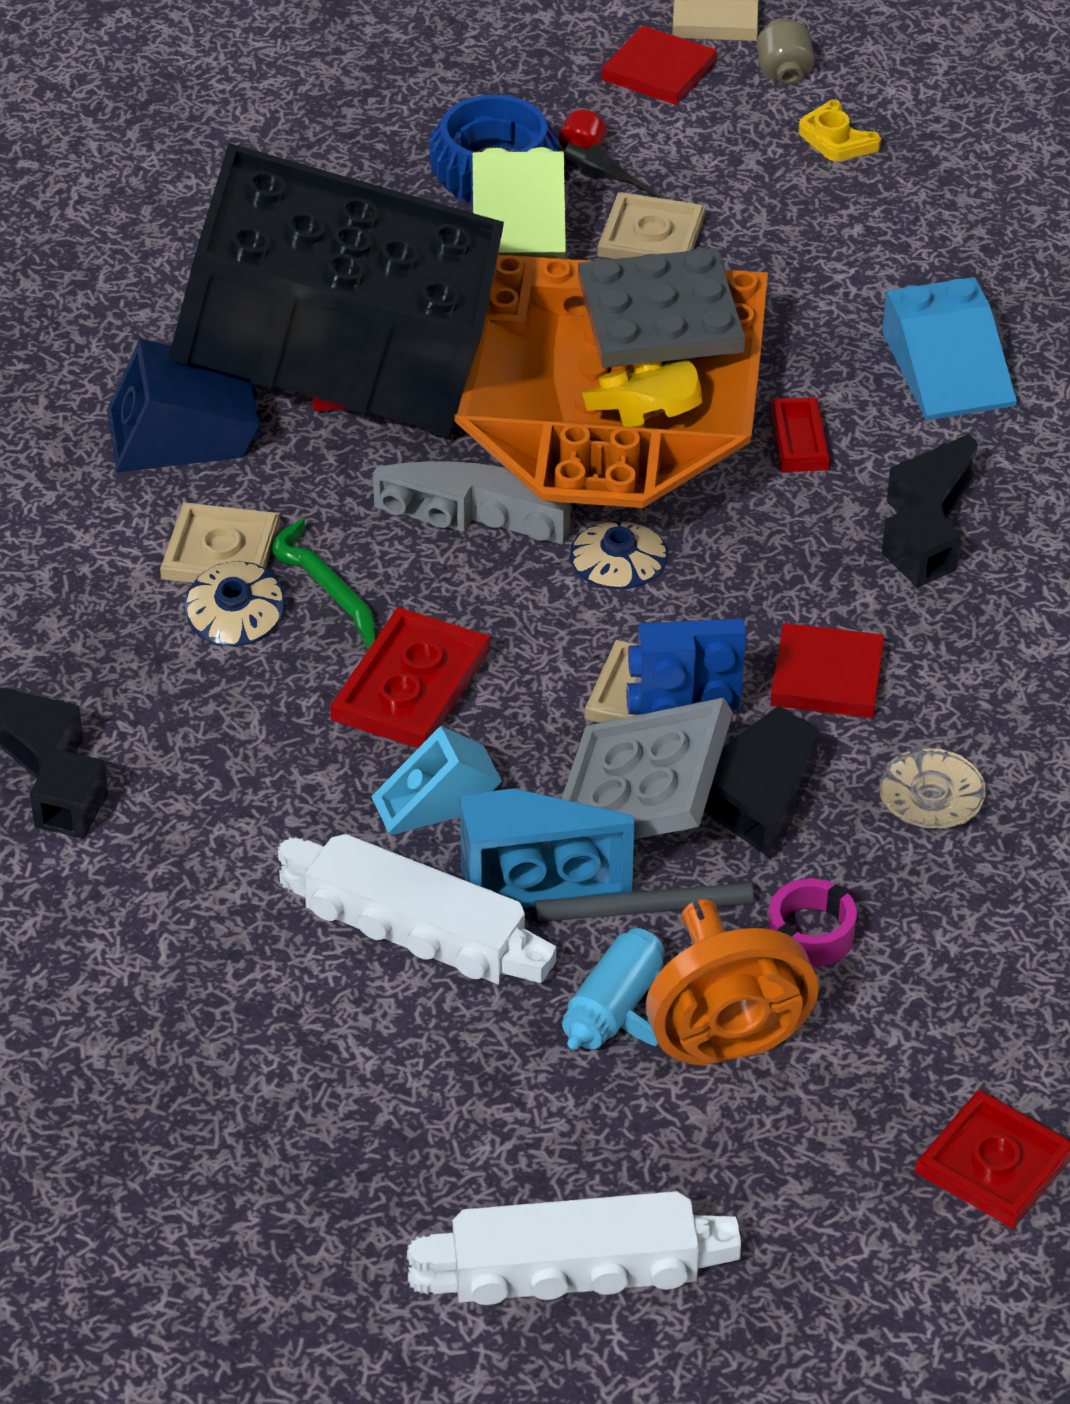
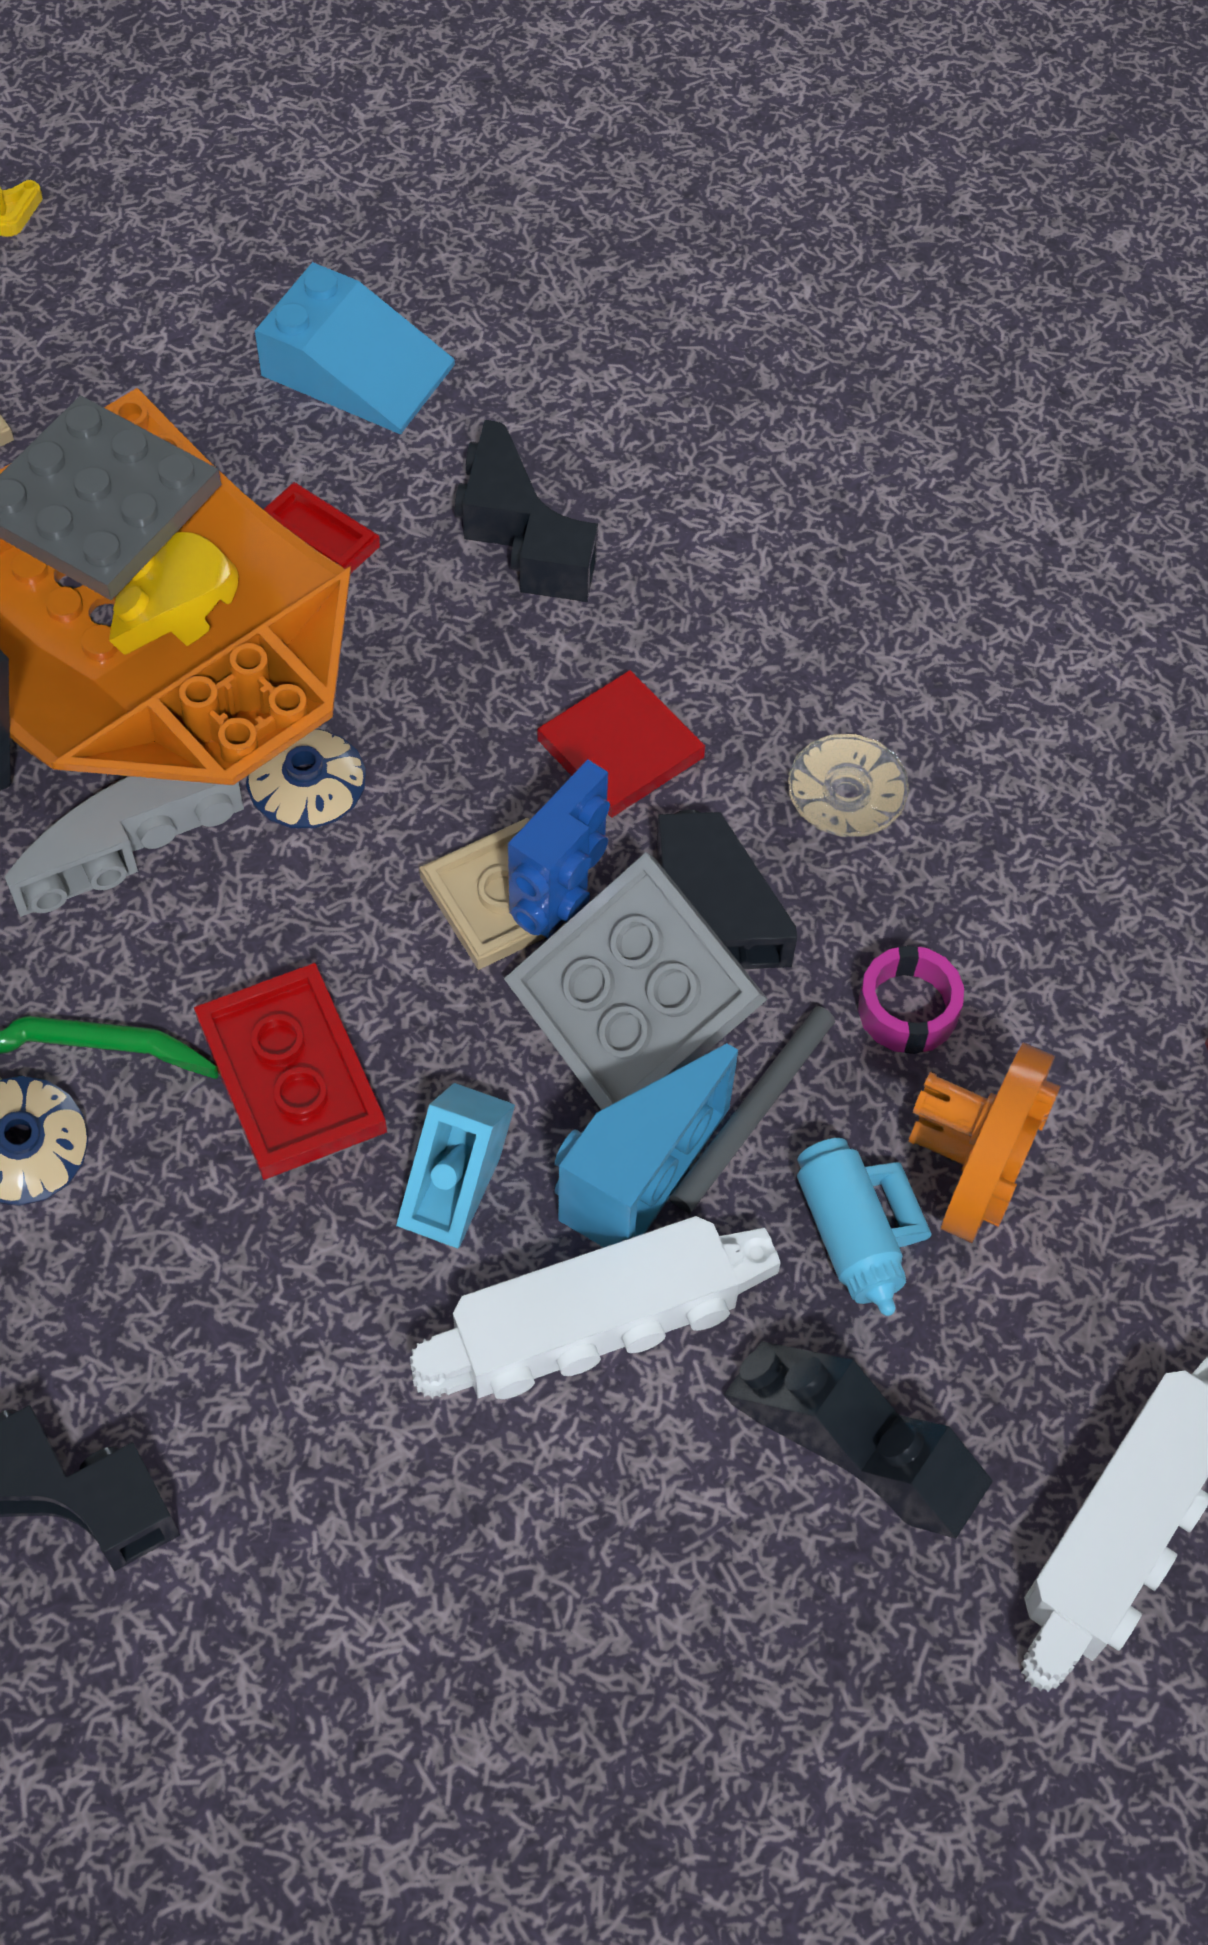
camera: 50 degrees left, 15 degrees up
(471, 1082) = (844, 1418): none -> black arch

